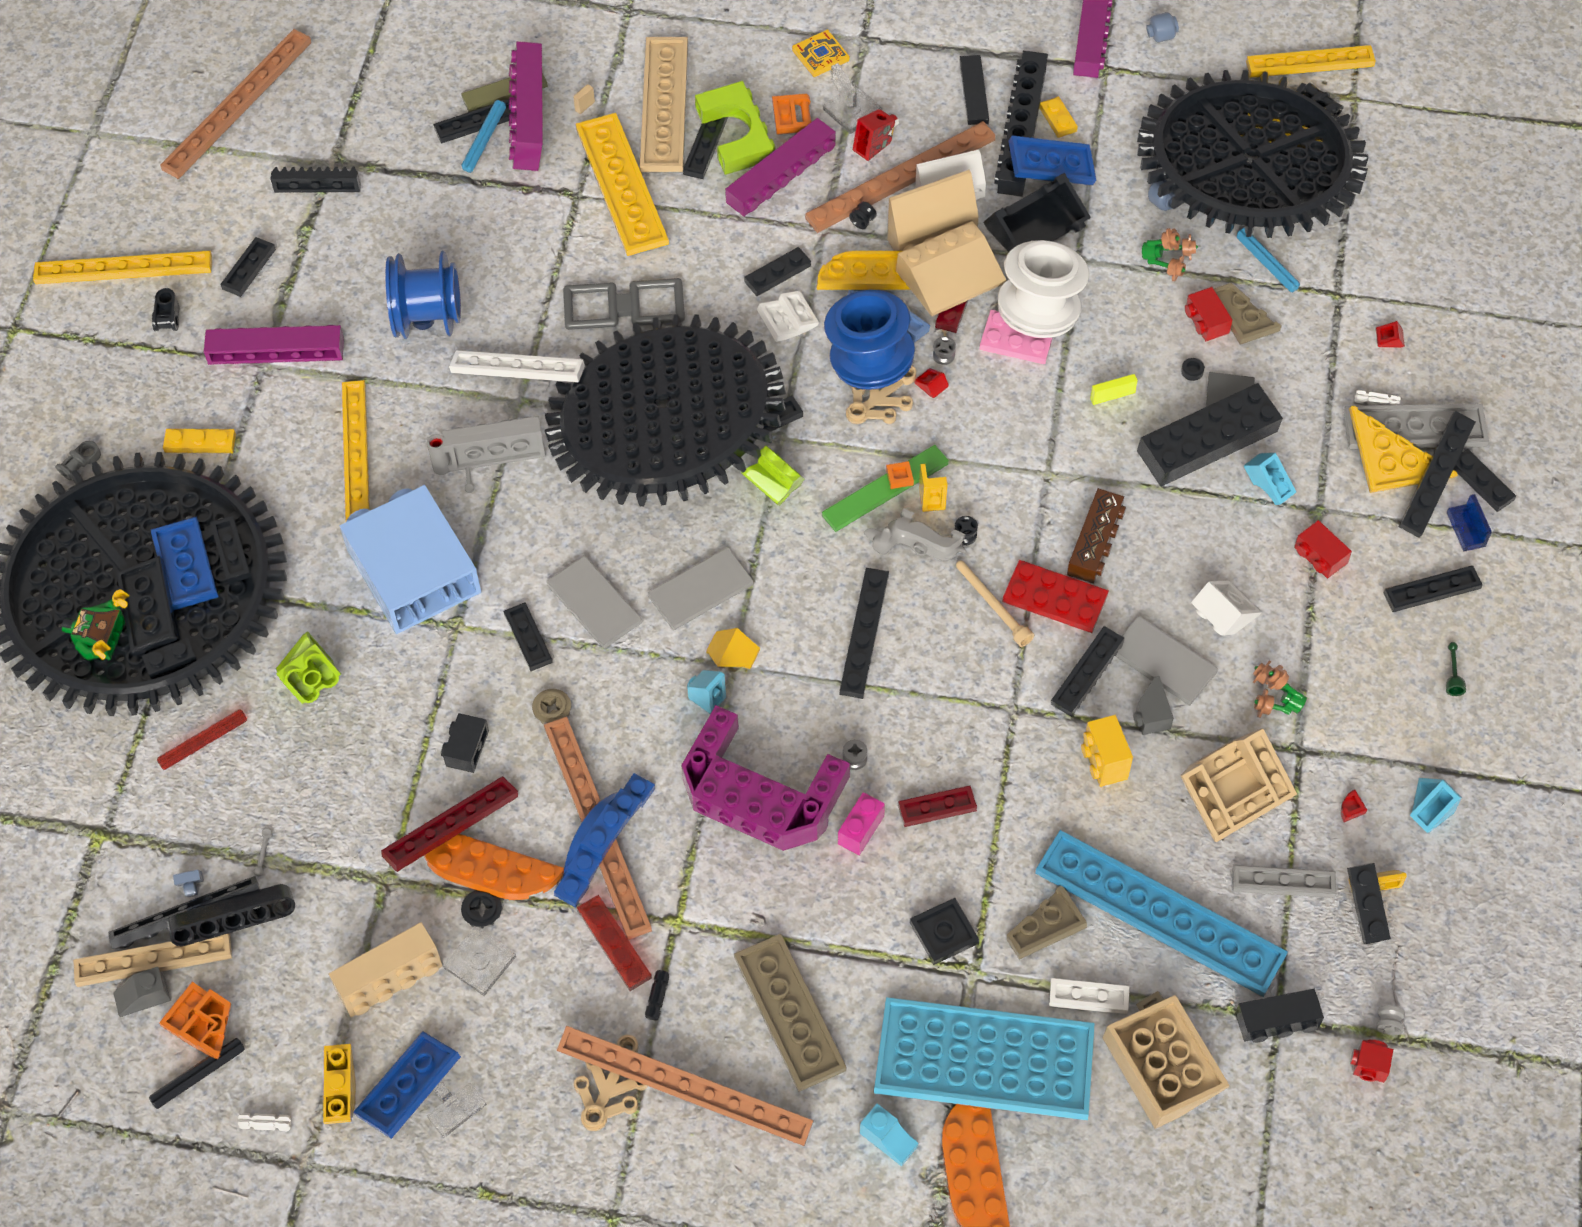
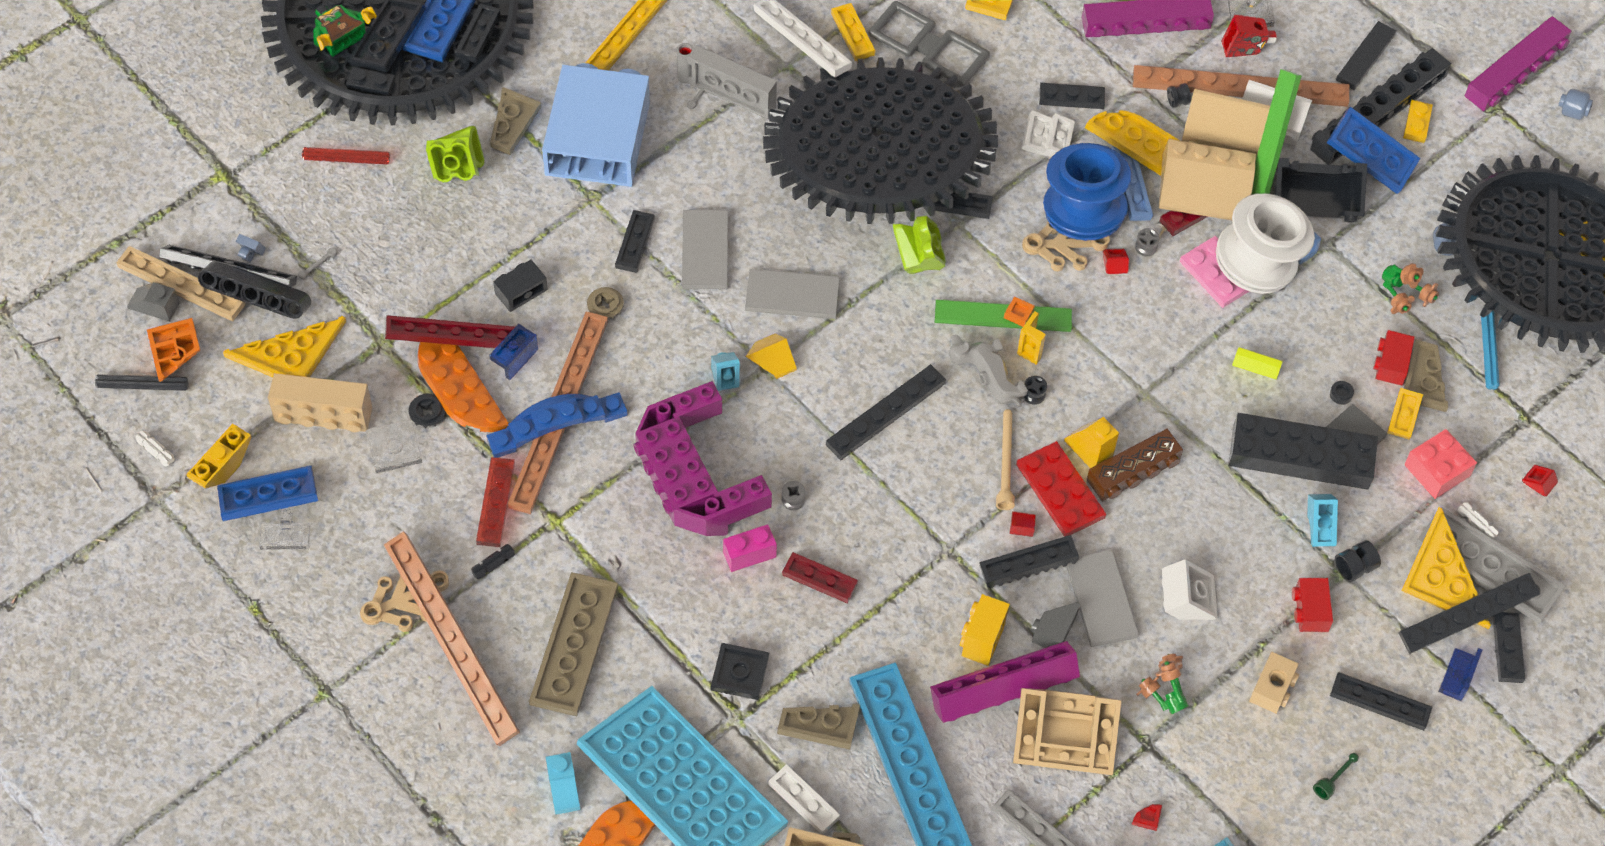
camera: 35 degrees right, 0 degrees up
(310, 949) = (289, 352): none -> yellow tile
(326, 605) = (512, 120): none -> dark tan wing
(513, 800) = (515, 350): none -> clear blue panel
(553, 335) = (853, 31): none -> yellow plate
(979, 190) = (1275, 131): none -> bright green tile
(1051, 538) = (1094, 441): none -> yellow slope
(1052, 645) = (1022, 524): none -> red slope
(1157, 781) = (1004, 681): none -> magenta brick
(1255, 352) = (1404, 413): none -> yellow plate
(1314, 373) = (1440, 463): none -> coral brick
(1324, 491) = (1358, 560): none -> black wheel
(1347, 643) = (1267, 694): none -> tan brick

